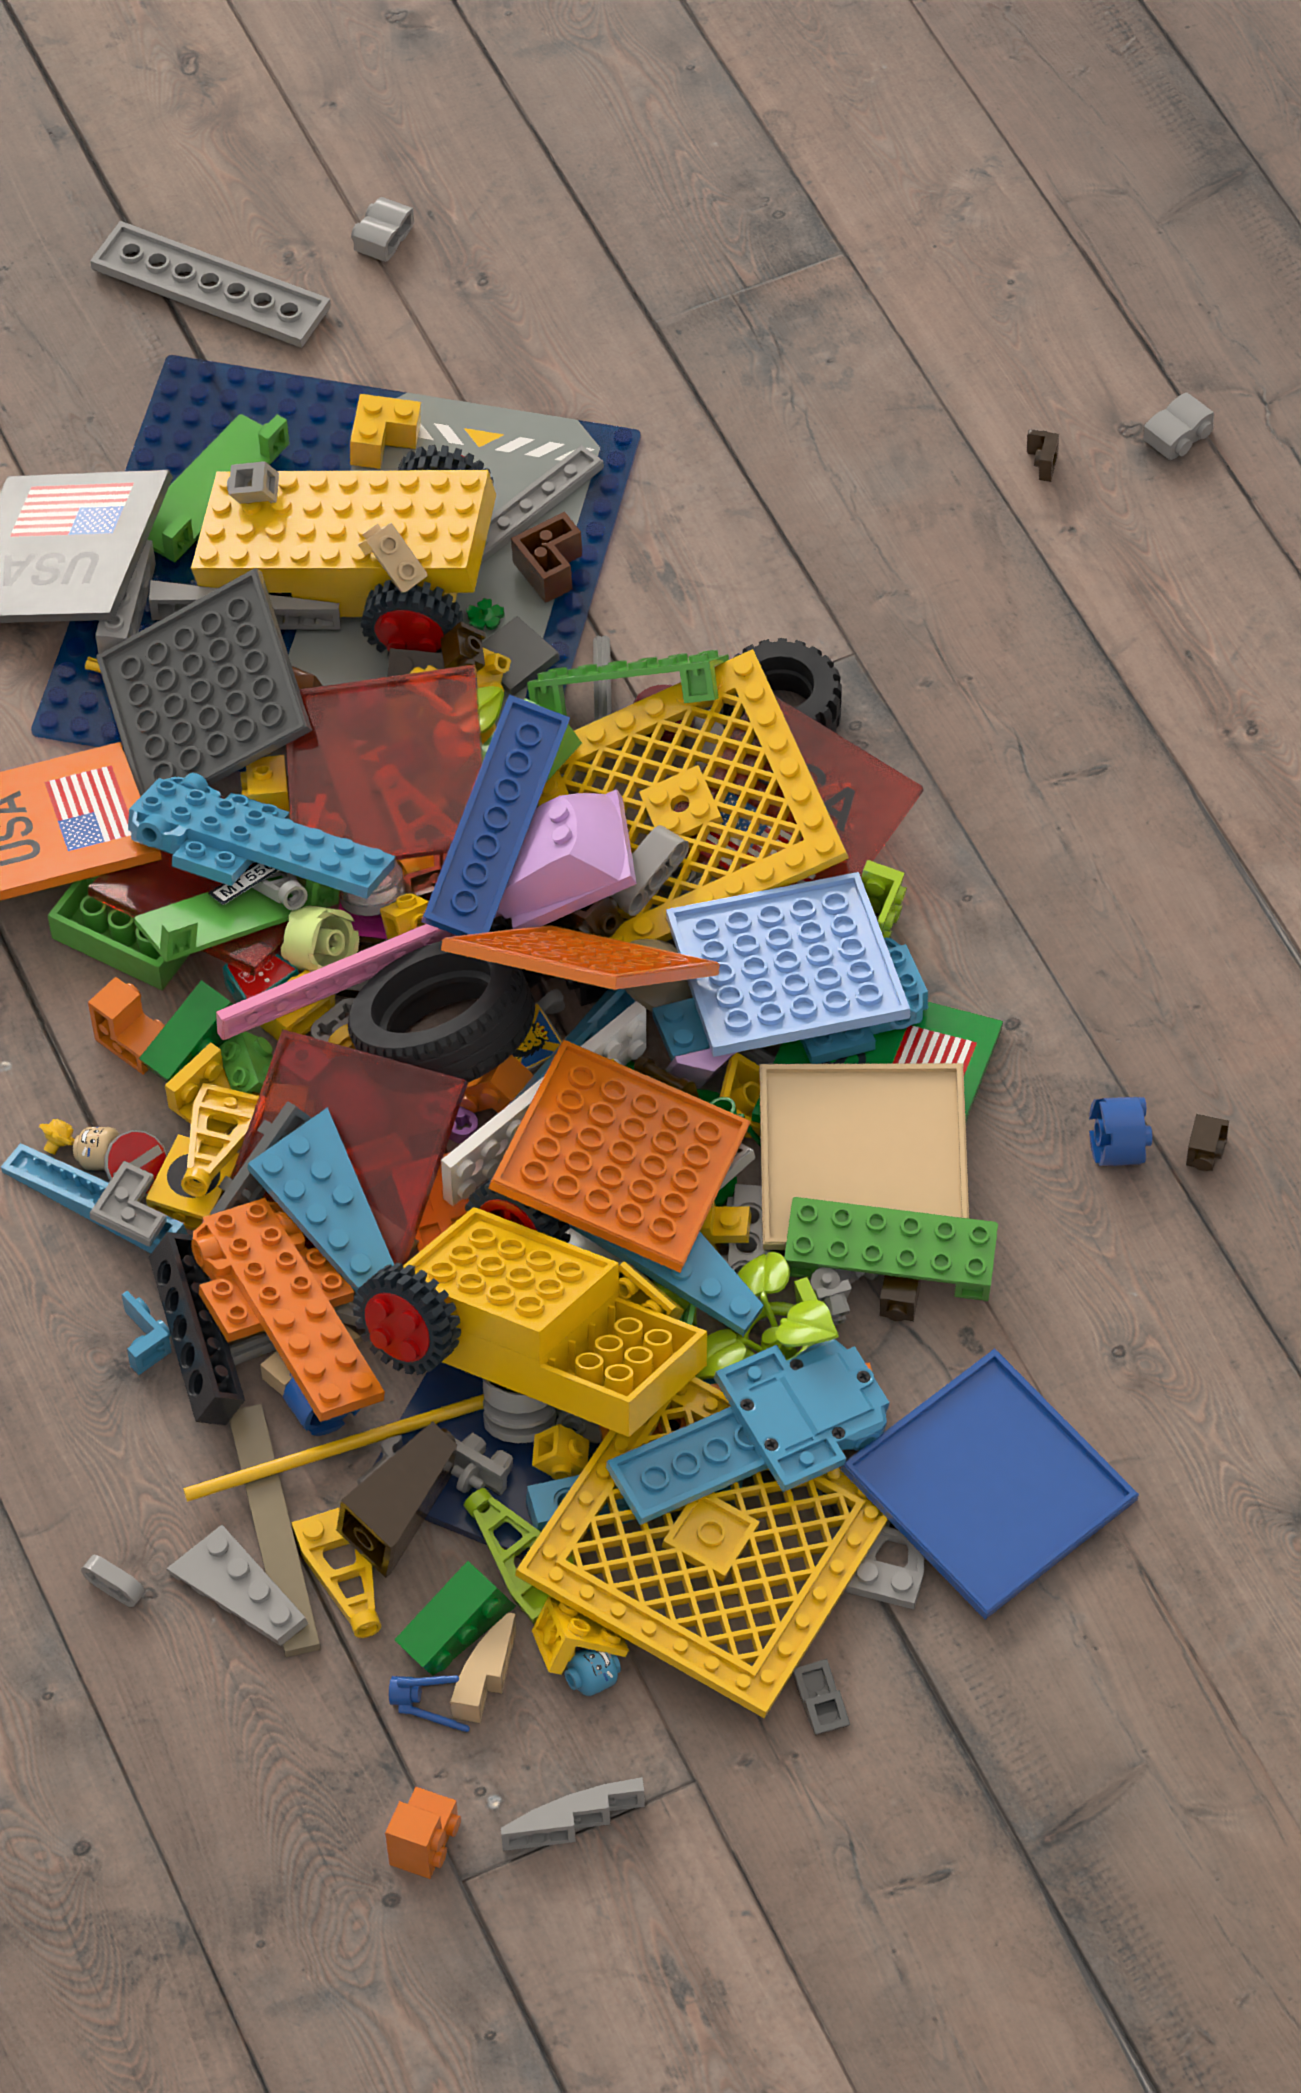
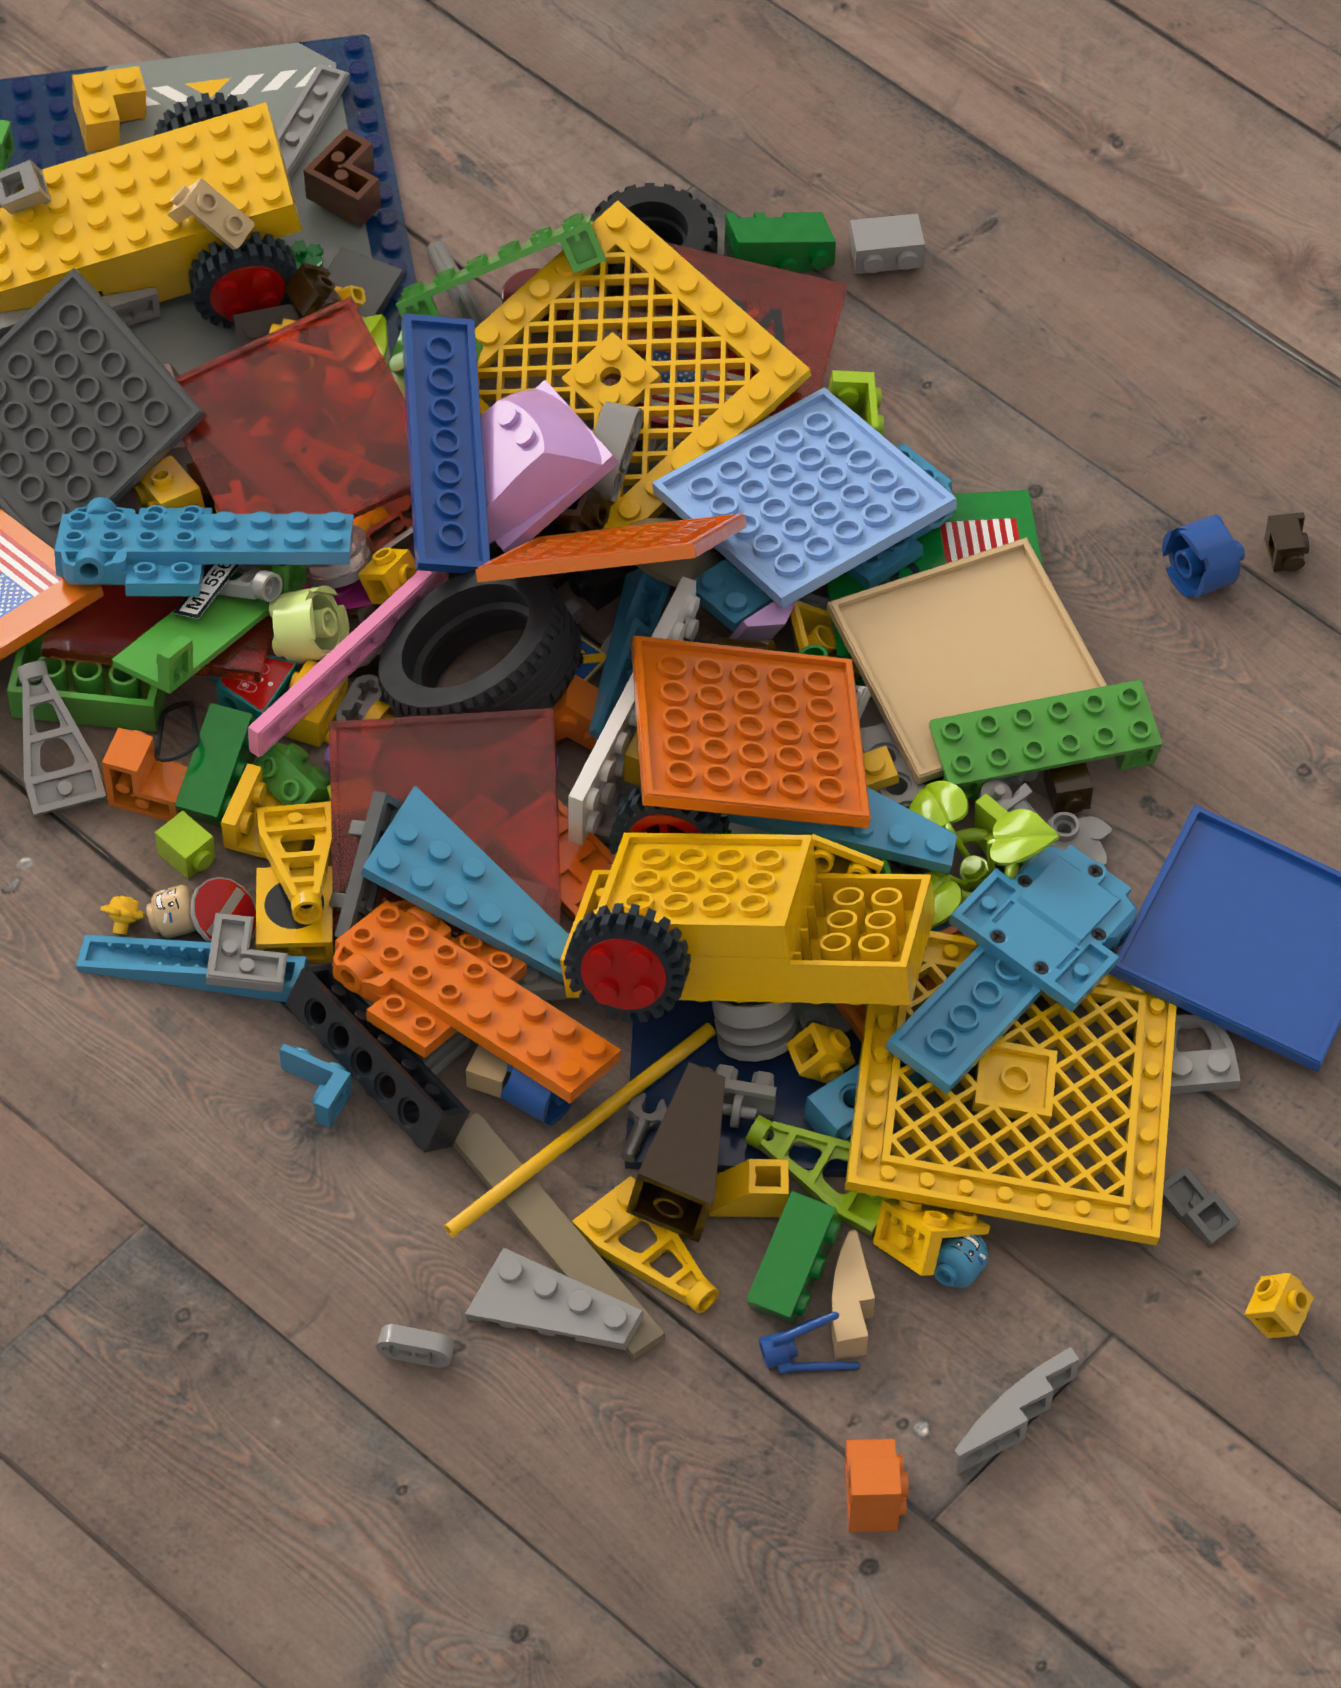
camera: 25 degrees left, 0 degrees up
(61, 1012) = (62, 787): none -> light grey plate
(135, 1095) = (185, 845): none -> lime brick
(163, 1015) = (160, 732): none -> black piece
(448, 1547) = (752, 1189): none -> yellow slope
(841, 1807) = (1279, 1305): none -> yellow brick
(886, 1350) = (1082, 833): none -> light grey plate
(894, 731) = (788, 242): none -> green wedge
(989, 759) = (886, 243): none -> light grey brick

